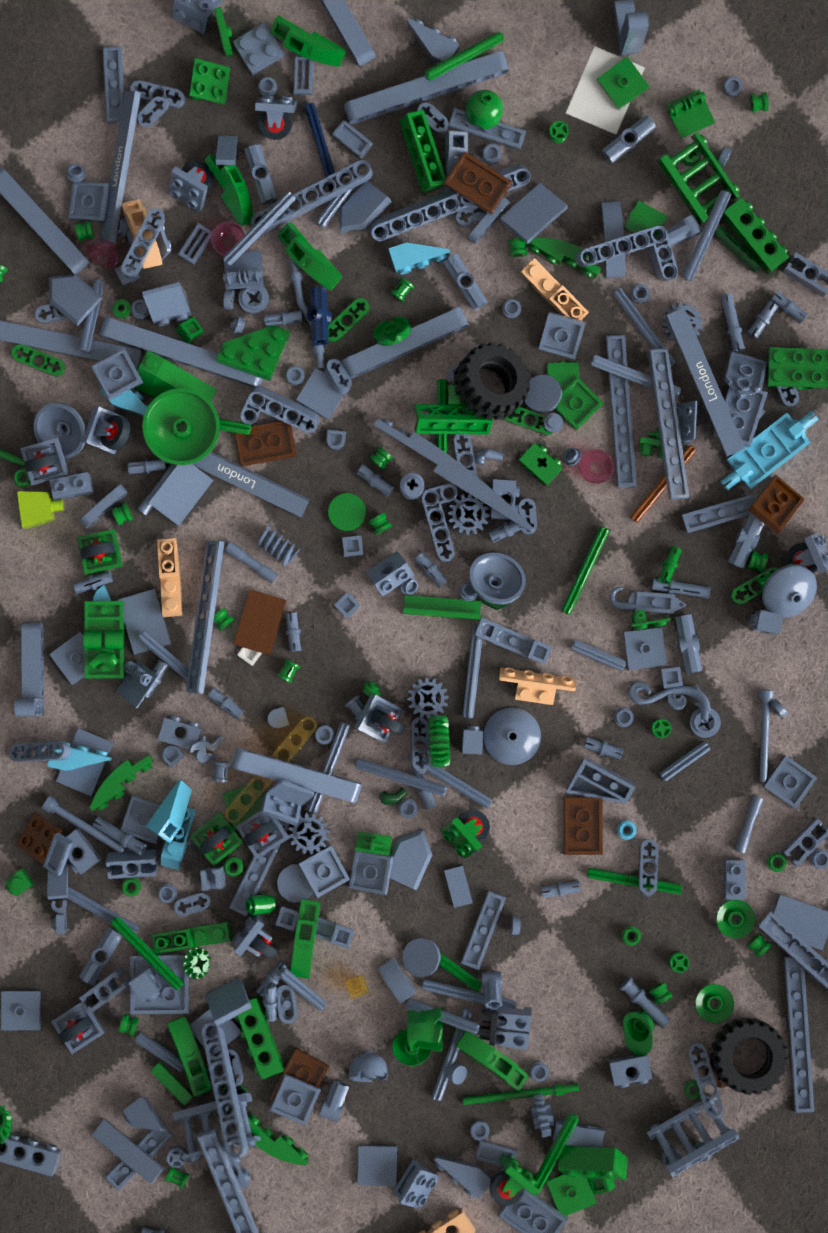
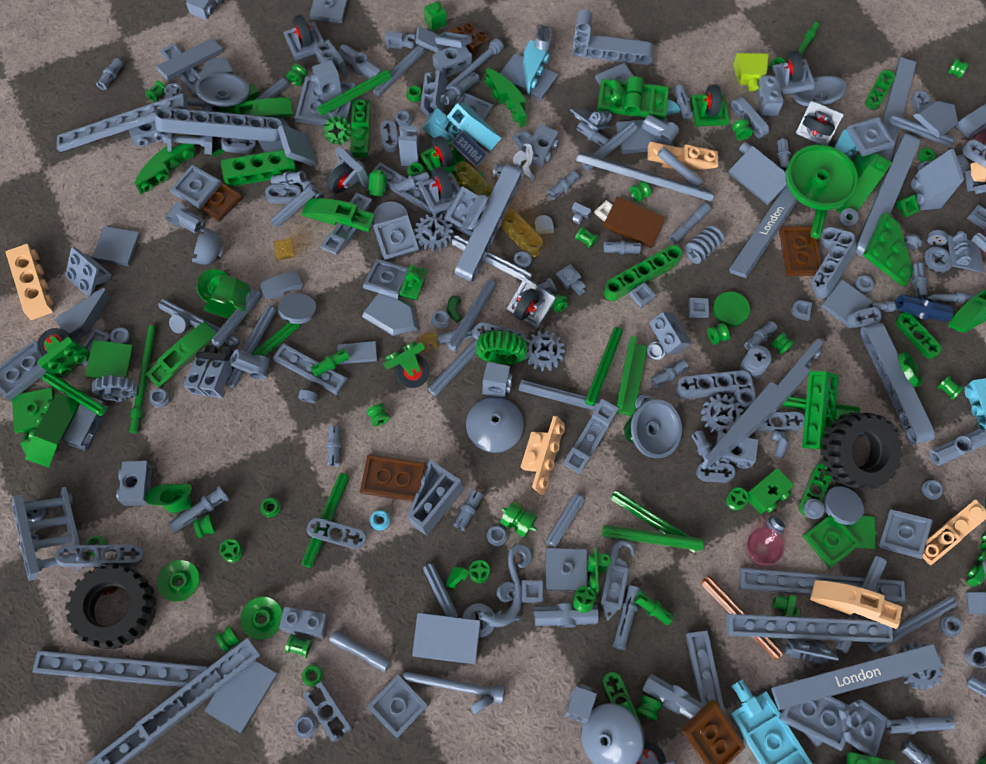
camera: 90 degrees right, 20 degrees down
(143, 600) = (664, 131): none -> sand blue piece
(165, 1102) = (222, 89): none -> sand blue dish
(183, 590) = (671, 160): none -> sand blue piece
(201, 812) = (469, 149): none -> dark blue slope
(213, 390) = (848, 223): none -> sand blue plate
(253, 867) = (411, 182): none -> sand blue axle
(258, 680) = (580, 213): none -> sand blue tile
(318, 598) = (648, 267): none -> green beam
(338, 682) = (571, 278): none -> sand blue plate
(434, 818) = (428, 338): none -> clear yellow tile
(435, 636) = (604, 366): none -> green axle
(477, 910) = (329, 362): none -> green pin
(509, 1132) = (108, 359): none -> green tile
(523, 851) = (378, 414): none -> green wheel
(550, 493) = (741, 498): none -> green wheel
(604, 572) = (653, 537): none -> green axle
(607, 697) = (516, 517): none -> green wheel
(638, 383) = (857, 600): none -> light nougat slope
(669, 749) = (455, 576): none -> green tile
(671, 629) = (585, 594): none -> green wheel
(726, 748) = (446, 638): none -> sand blue tile
(754, 880) = (293, 641): none -> green bush

